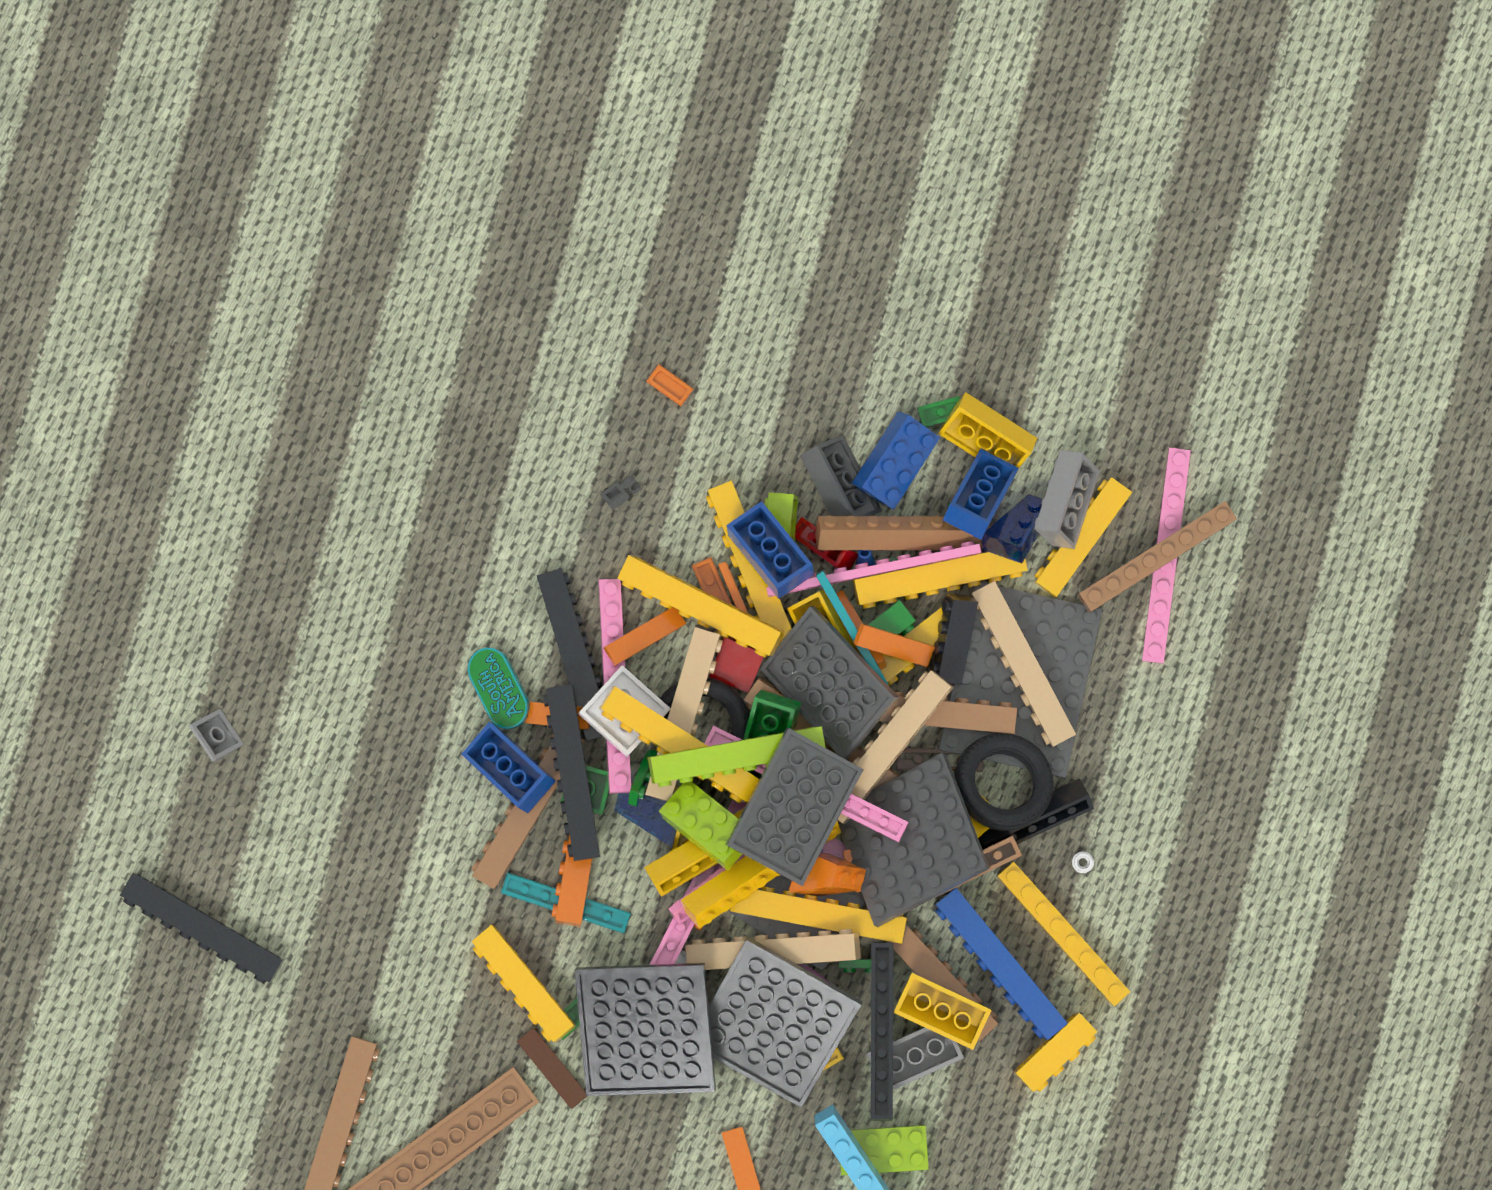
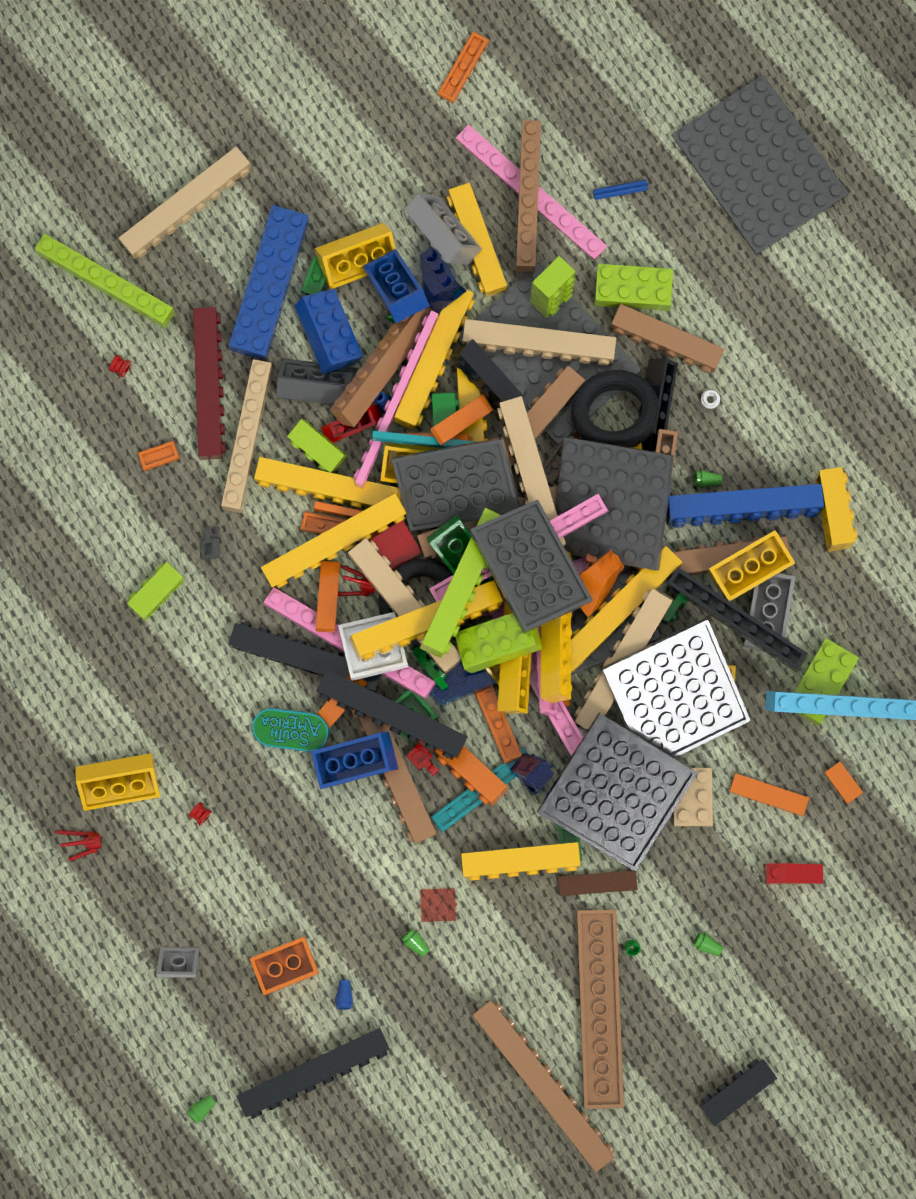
camera: 55 degrees left, 5 degrees down
(100, 849) = (199, 1110): none -> bright green cone
(271, 579) = (92, 842): none -> red plant
(278, 834) = (284, 966): none -> orange brick
(289, 907) = (344, 996): none -> blue cone
(341, 563) = (117, 782): none -> yellow slope
(364, 659) = (200, 813): none -> red wheel
(382, 938) = (415, 942): none -> bright green cone
(432, 935) = (438, 905): none -> clear red piece
(511, 1143) = (634, 951): none -> green hinge
(540, 472) = (155, 591): none -> lime brick
(554, 826) = (421, 758): none -> red plate
(610, 938) = (532, 771): none -> clear blue wedge
(634, 877) = (498, 725): none -> orange tile
(679, 661) = (365, 585): none -> red plant
(689, 1110) = (697, 802): none -> tan plate
(728, 289) = (120, 366): none -> red wheel
(744, 454) = (247, 436): none -> tan brick
(769, 382) = (208, 383): none -> dark red brick
(770, 550) = (330, 459): blue brick -> none
(799, 218) = (104, 281): none -> lime brick
(904, 372) = (269, 283): none -> blue brick
(926, 239) = (185, 203): none -> tan brick
(1002, 911) = (706, 479): none -> bright green cone
(1063, 934) = (753, 447): yellow brick -> none
(1078, 643) = (553, 287): none -> lime brick
(1112, 782) = (666, 338): none -> medium nougat brick
(1139, 716) = (633, 287): none -> lime brick
(1228, 638) = (621, 189): none -> blue axle
(1244, 406) = (463, 67): none -> orange tile
(1346, 753) = (759, 164): none -> dark grey plate

